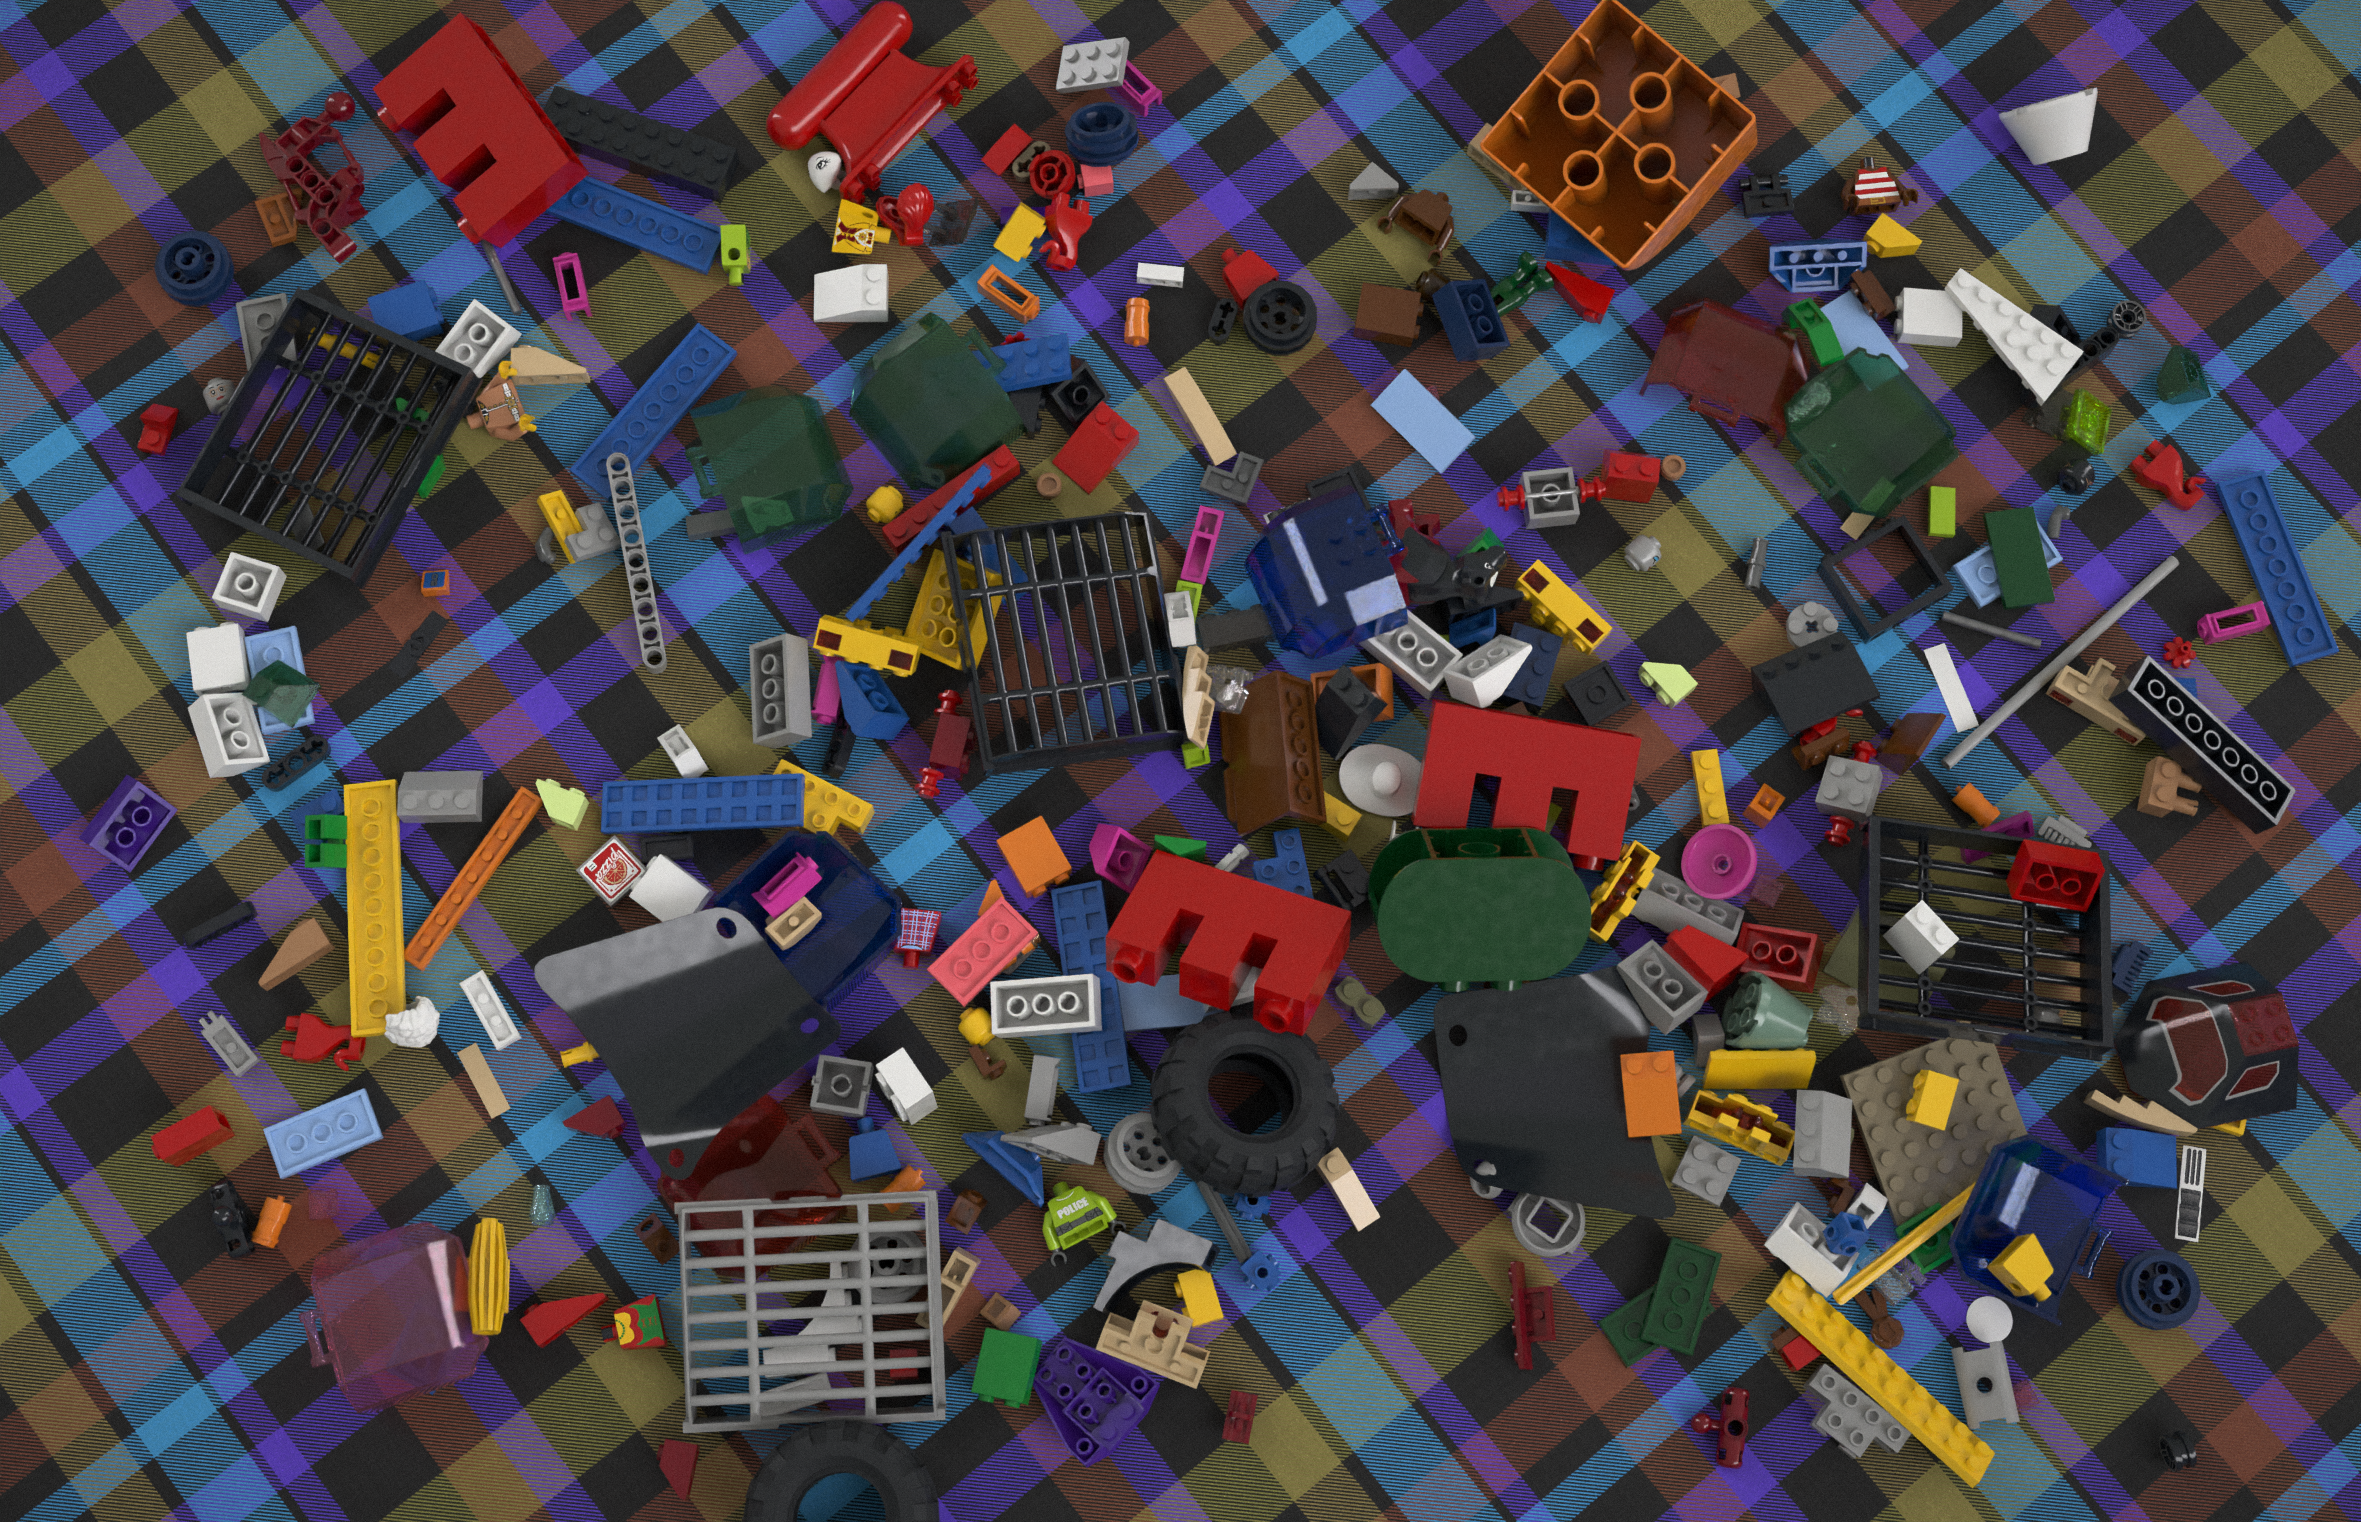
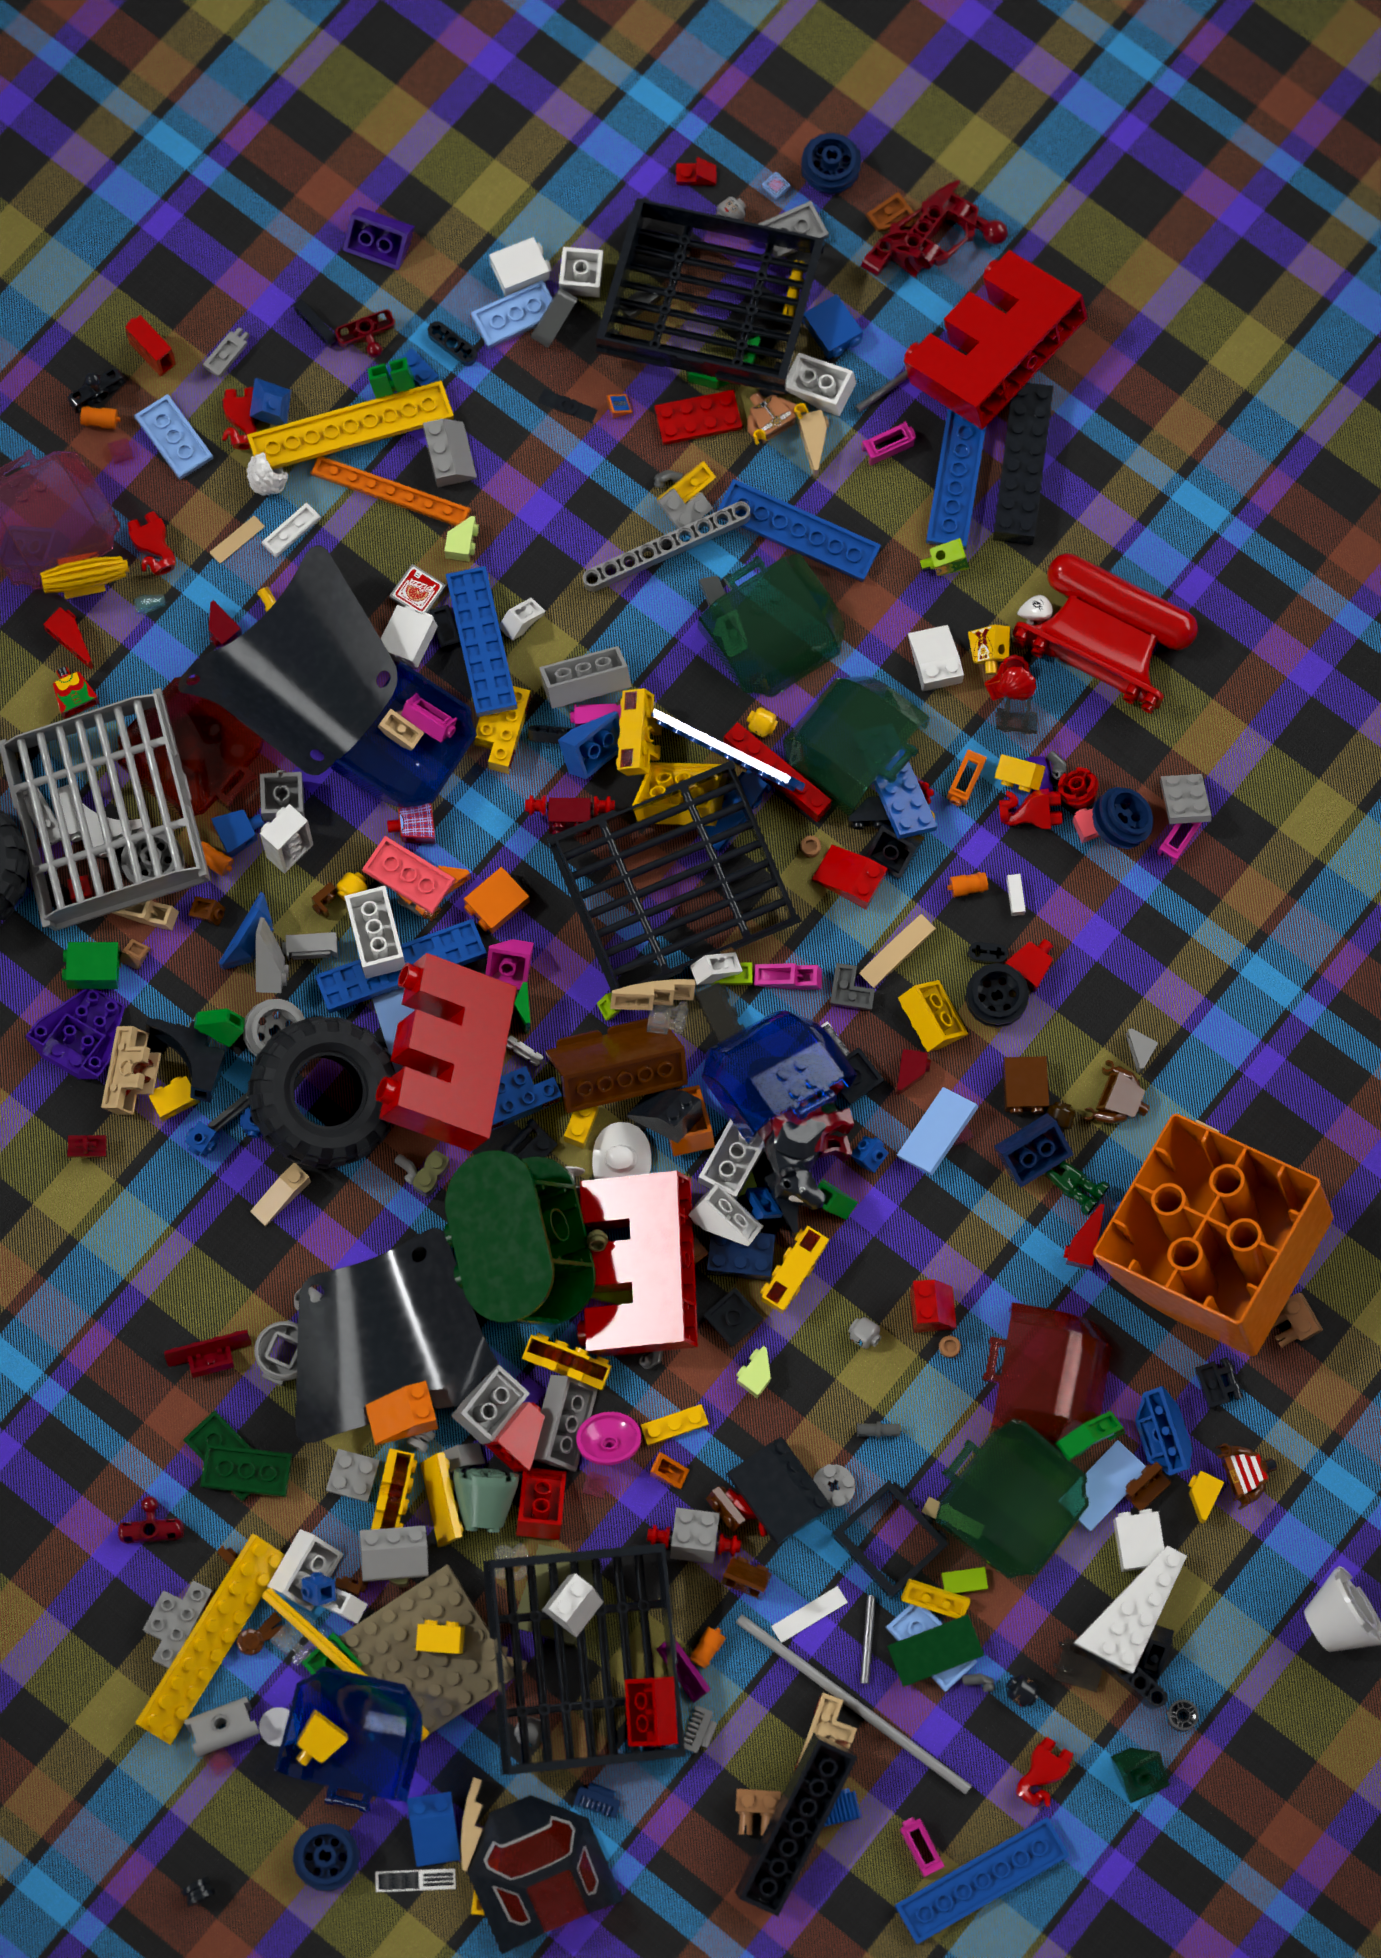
camera: 80 degrees right, 0 degrees up
(202, 340) = (776, 186): none -> light blue tile
(228, 734) = (463, 289): white slope -> none
(252, 877) = (376, 328): none -> dark red piece
(281, 692) = (503, 316): clear green slope -> none
(298, 951) = (307, 383): medium nougat slope -> none
(300, 632) = (553, 317): none -> dark grey beam
(314, 1000) = (270, 403): none -> blue slope
(459, 1186) = (151, 541): none -> red hips
(476, 495) = (698, 417): none -> red plate
(657, 1239) = (140, 687): reddish brown bracket -> none
(1007, 149) = (1095, 749): red slope -> none
(1016, 193) = (1059, 765): none -> dark grey arm
(1025, 159) = (1093, 767): dark tan beam -> none
(1076, 1216) = (214, 988): lime torso -> none
(1125, 1217) = (220, 1024): none -> green slope
(1285, 396) = (932, 1015): none -> yellow slope
(1344, 434) = (912, 1069): none -> dark red slope
(1344, 1027) = (408, 1166): none -> light grey arm
(1435, 498) = (869, 1153): none -> blue brick
(1494, 816) = (597, 1240): none -> olive plate
(1550, 497) = (893, 1244): light grey brick -> none
(1798, 1353) = (217, 1570): red brick -> none
(1962, 544) = (935, 1599): none -> yellow plate
(2088, 421) = (1075, 1693): clear neon green plate -> none
(2179, 653) = (881, 1810): red plant -> none

